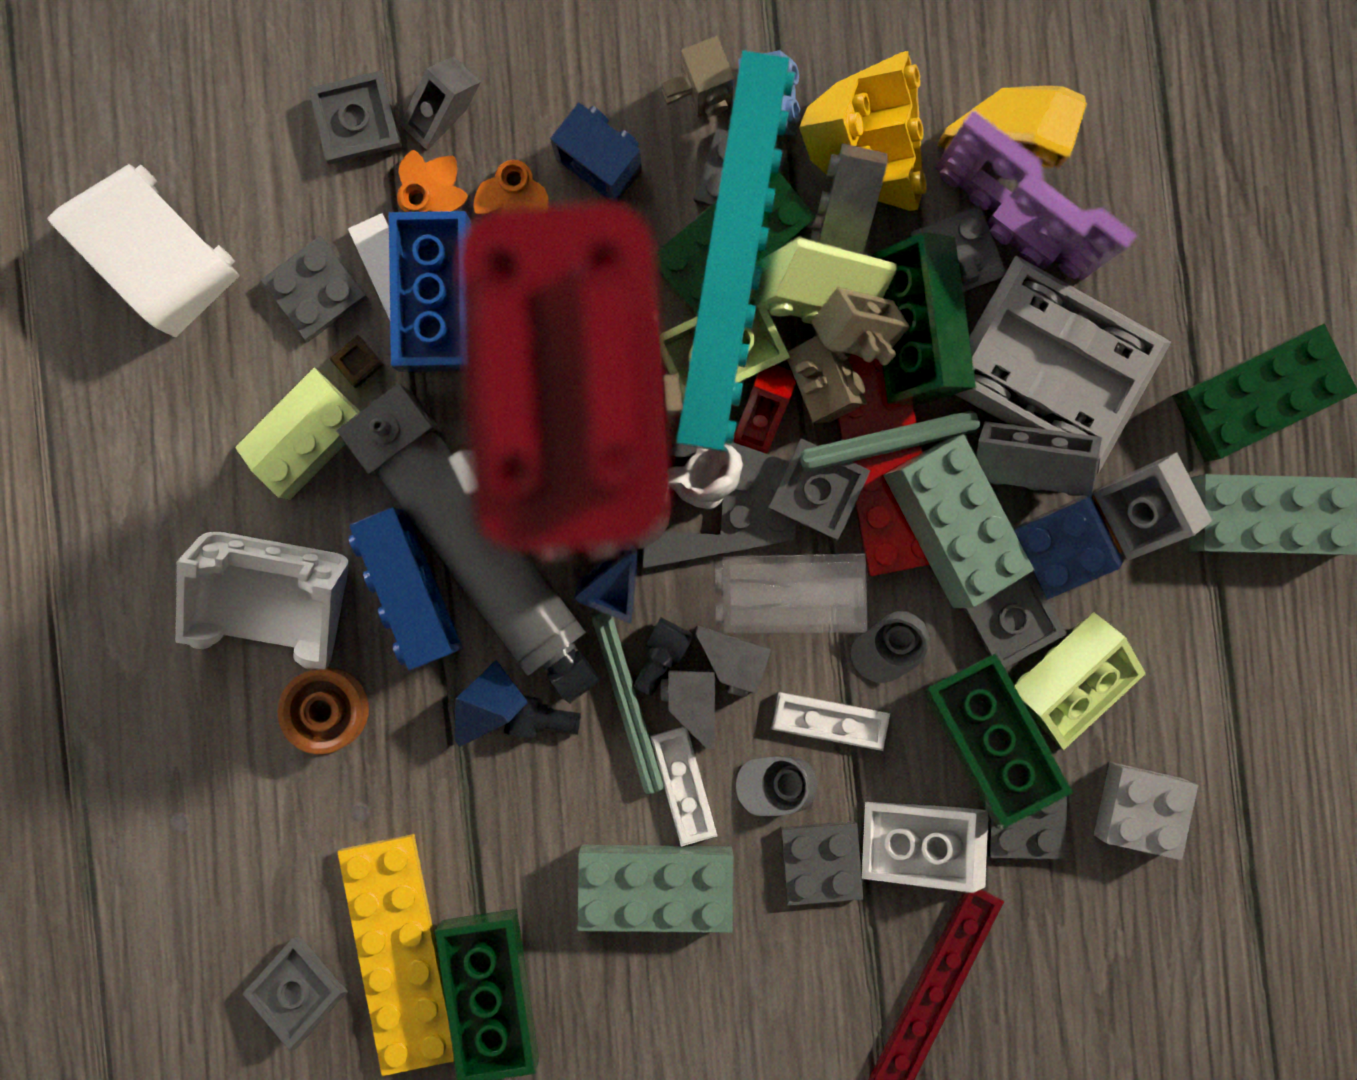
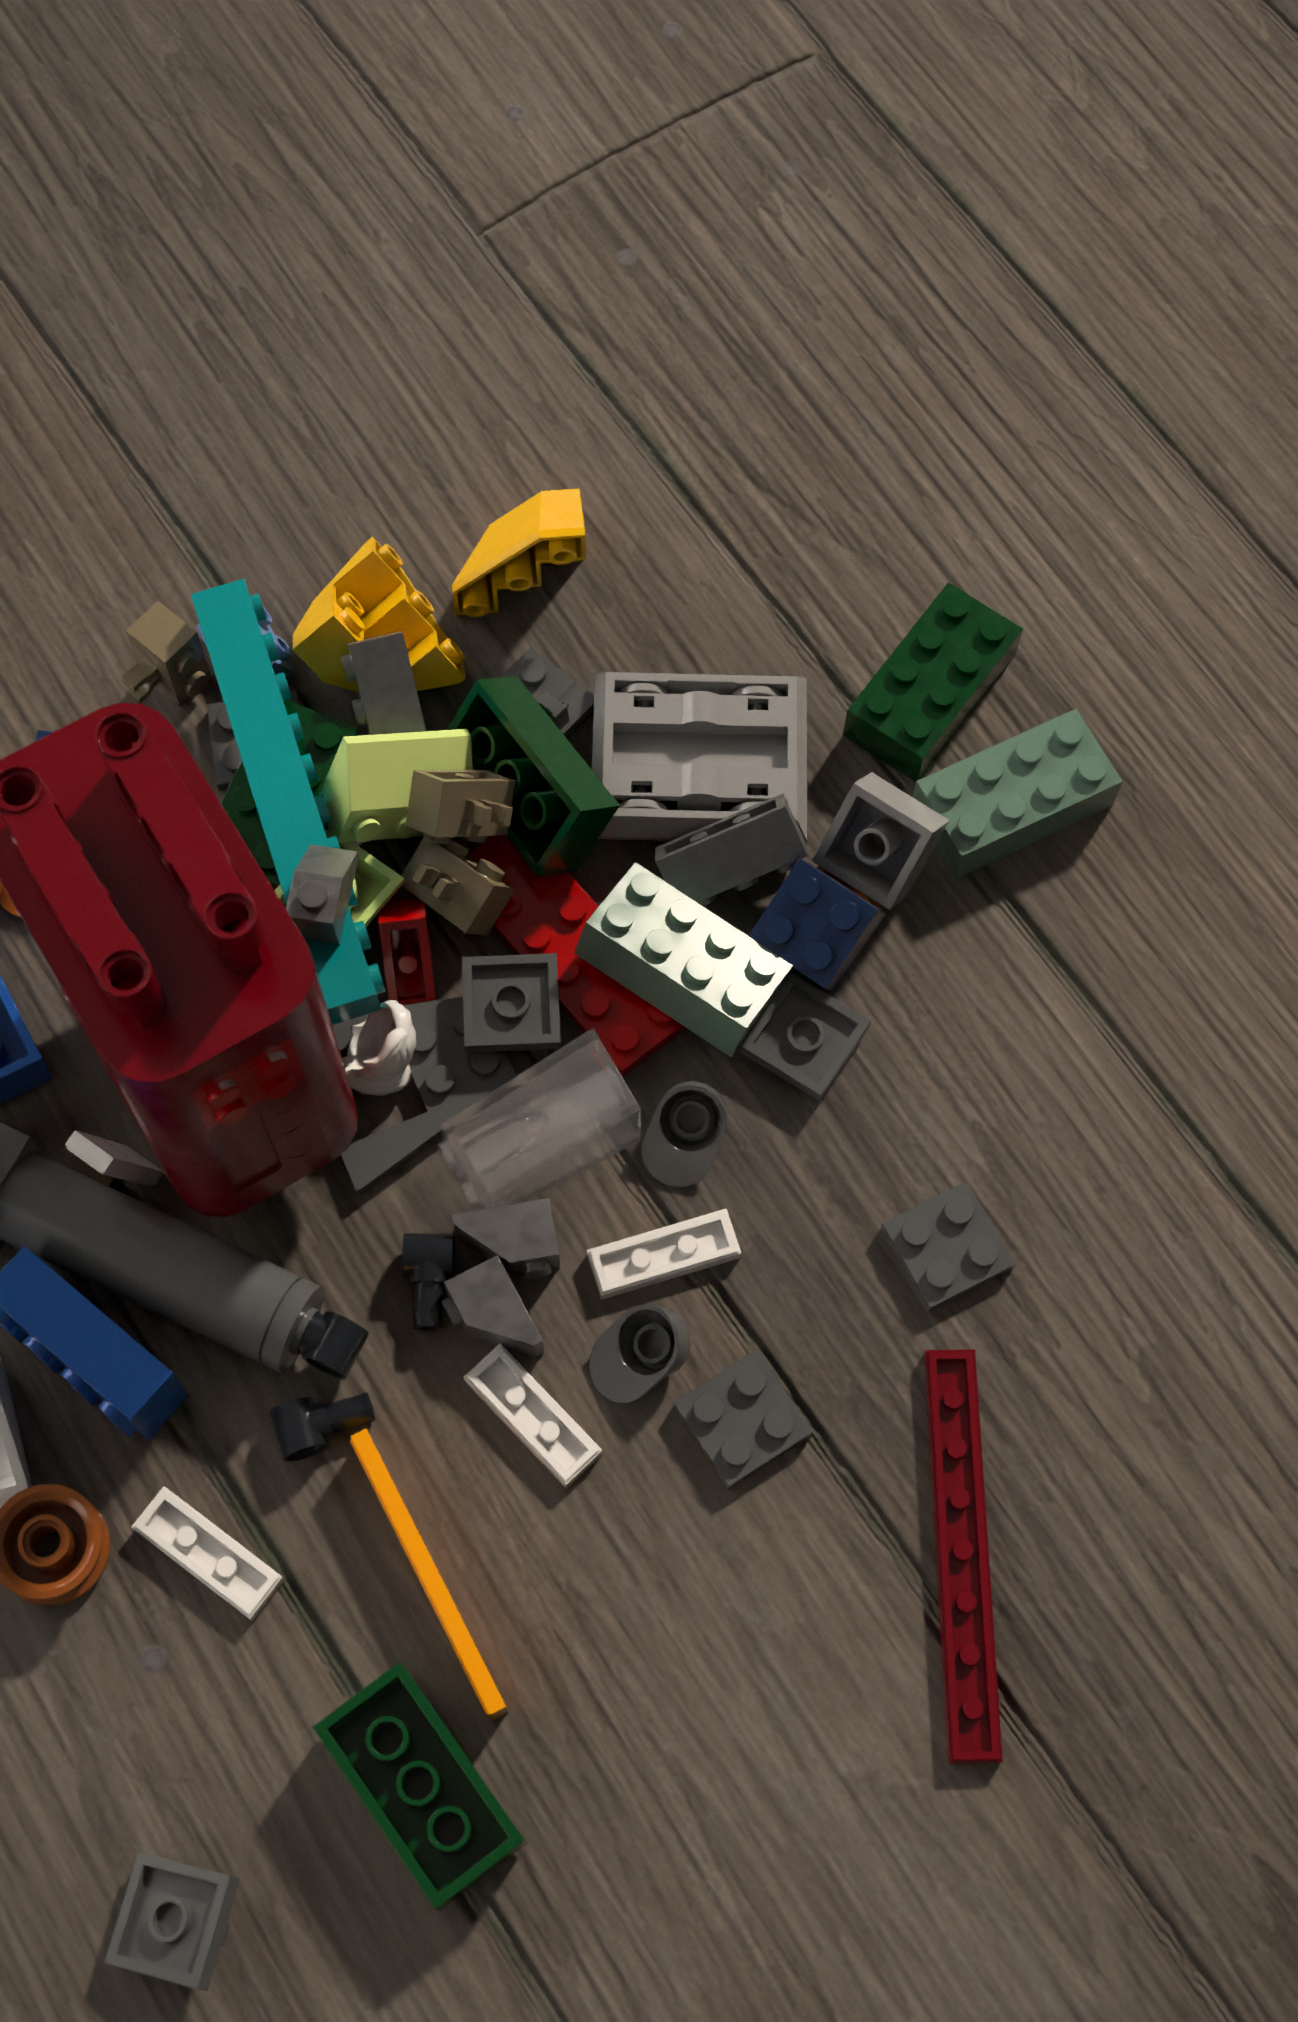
camera: 30 degrees left, 20 degrees down
(397, 954) = (284, 1810): yellow plate -> none
(426, 764) = (208, 1553): none -> white tile
(486, 704) = (243, 1433): dark blue slope -> none
(560, 859) = (428, 1575): none -> light orange tile
(611, 586) = (328, 1218): dark blue slope -> none
(628, 703) = (417, 1353): sand green axle -> none
(655, 888) = (560, 1545): sand green brick -> none
(722, 353) = (322, 892): none -> flat silver slope
(889, 441) = (555, 916): sand green axle -> none
(925, 845) = (848, 1330): white slope -> none
(997, 742) = (858, 1166): dark green brick -> none
(1033, 215) = (636, 607): medium lavender piece -> none
(1079, 679) = (914, 1064): yellowish green slope -> none
(1145, 811) = (1068, 1162): light grey brick -> none

